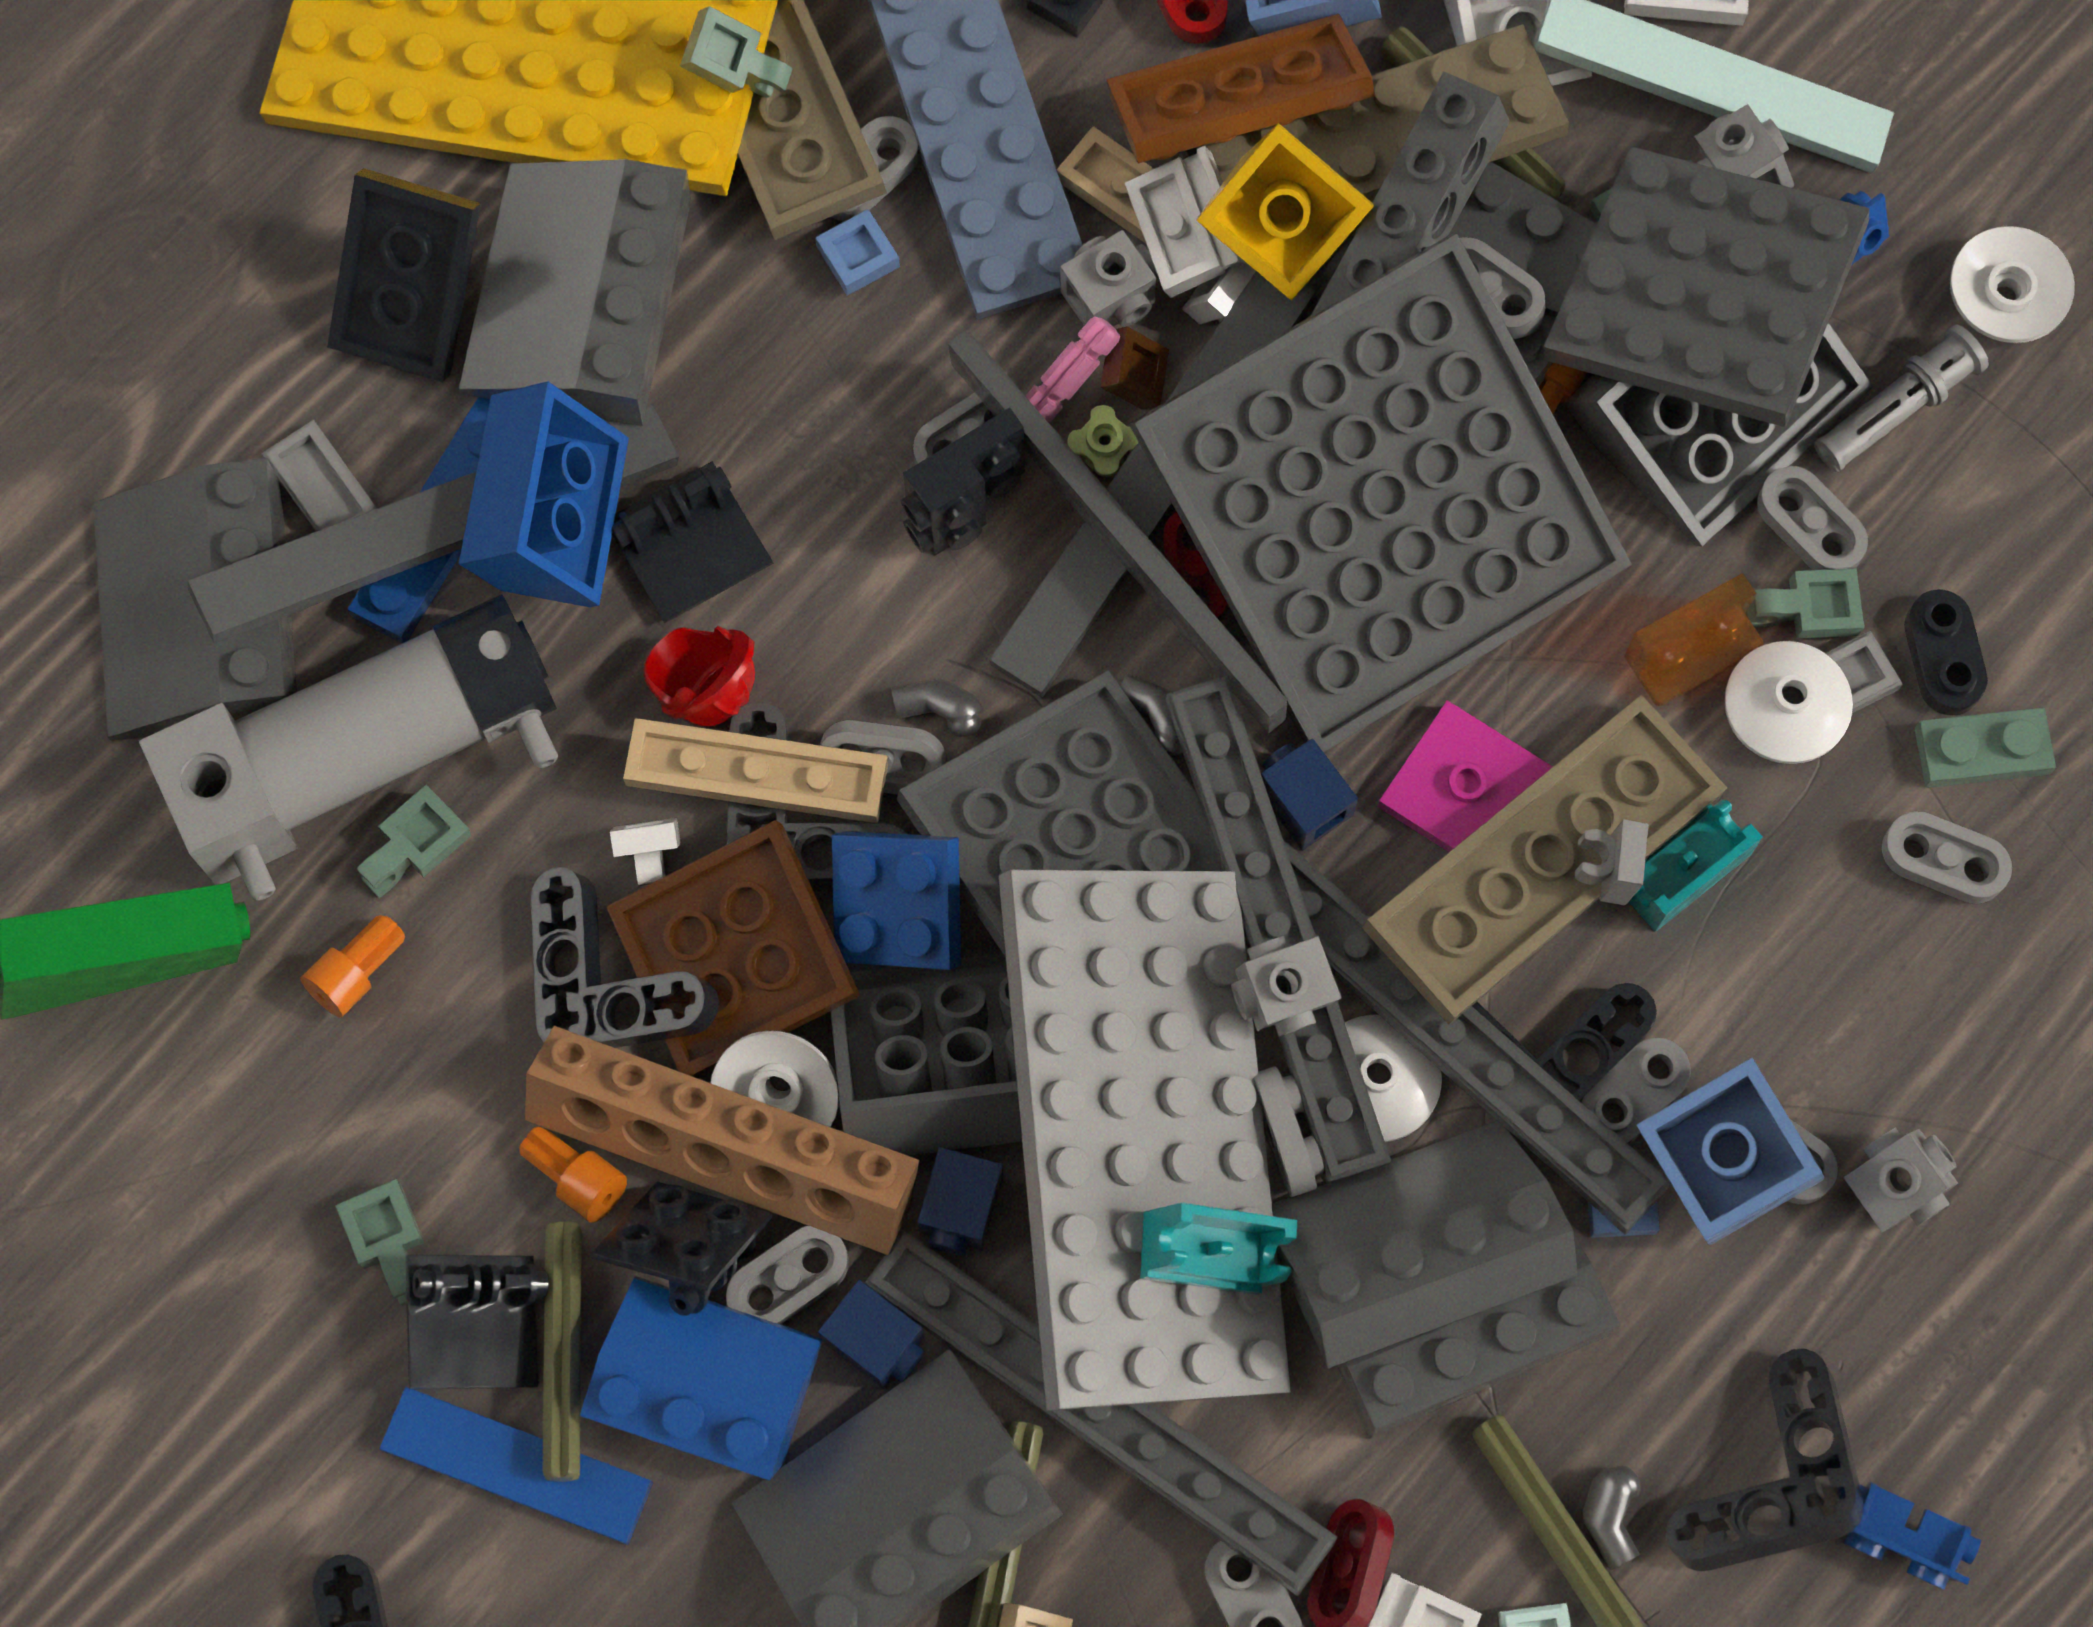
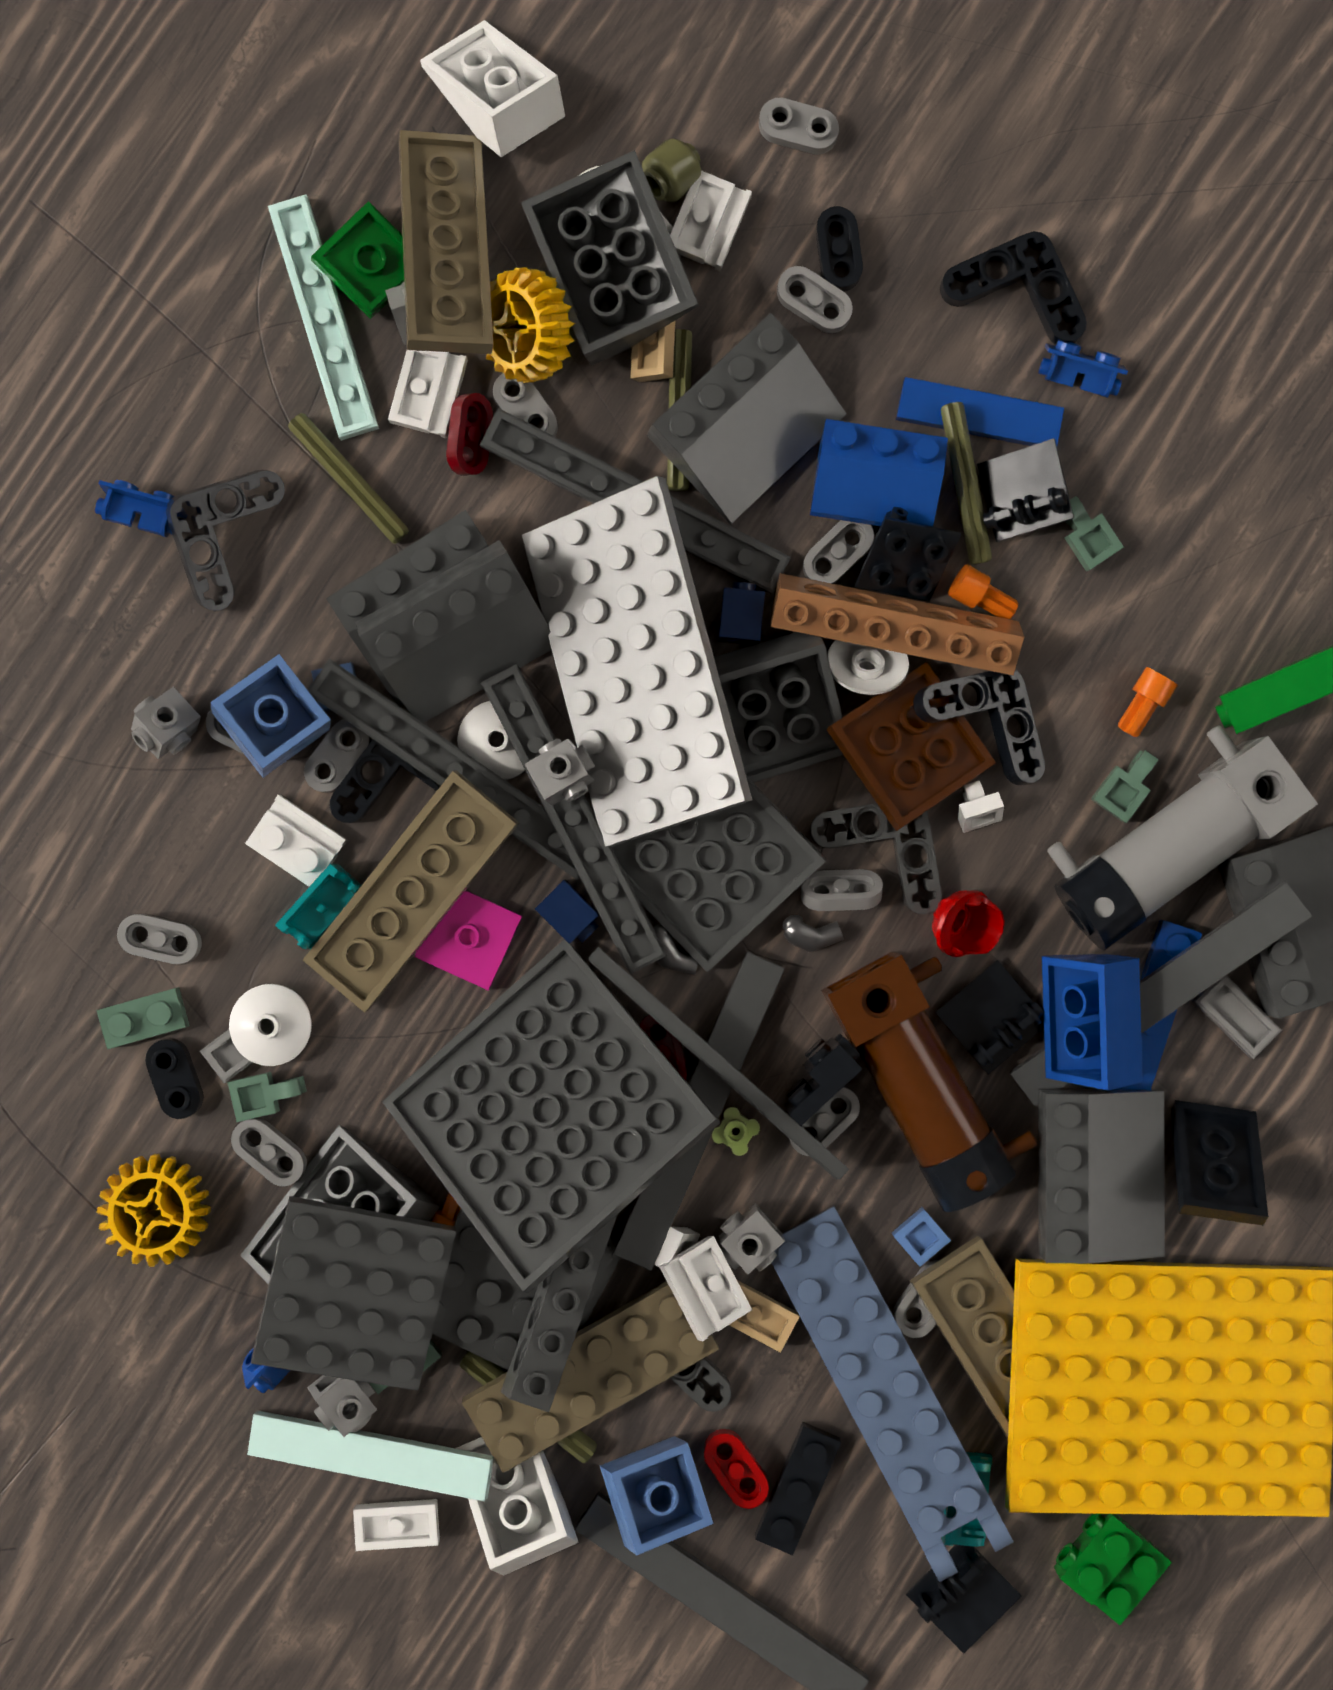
camera: 170 degrees right, 15 degrees up
(307, 1500) = (1098, 371): none -> blue hinge
(727, 55) = (1036, 1353): sand green plate -> none
(756, 770) = (919, 863): tan plate -> none
(845, 536) = (921, 1082): none -> reddish brown piece
(874, 1336) = (779, 523): dark blue brick -> none
(897, 899) = (814, 793): blue plate -> none
(1073, 367) = (765, 1174): bright pink axle -> none
(1135, 369) = (724, 1184): reddish brown plate -> none
(1214, 1247) = (580, 597): teal hinge -> none
(1240, 88) = (685, 1390): dark orange plate -> none
(1284, 211) = (642, 1297): yellow slope -> none
(1295, 1156) = (539, 678): light grey plate -> none
(1508, 287) = (491, 1274): light grey plate -> none
(1606, 1510) = (322, 494): flat silver arm -> none
(1622, 860) = (360, 889): light grey tile -> none
(1695, 642) = (333, 1053): clear orange bracket -> none
(1715, 972) = (295, 840): none -> white plate
(1925, 382) = (208, 1260): light grey pin -> none
(1945, 442) = (140, 1240): none -> yellow gear
(2026, 265) = (142, 1353): white dish -> none

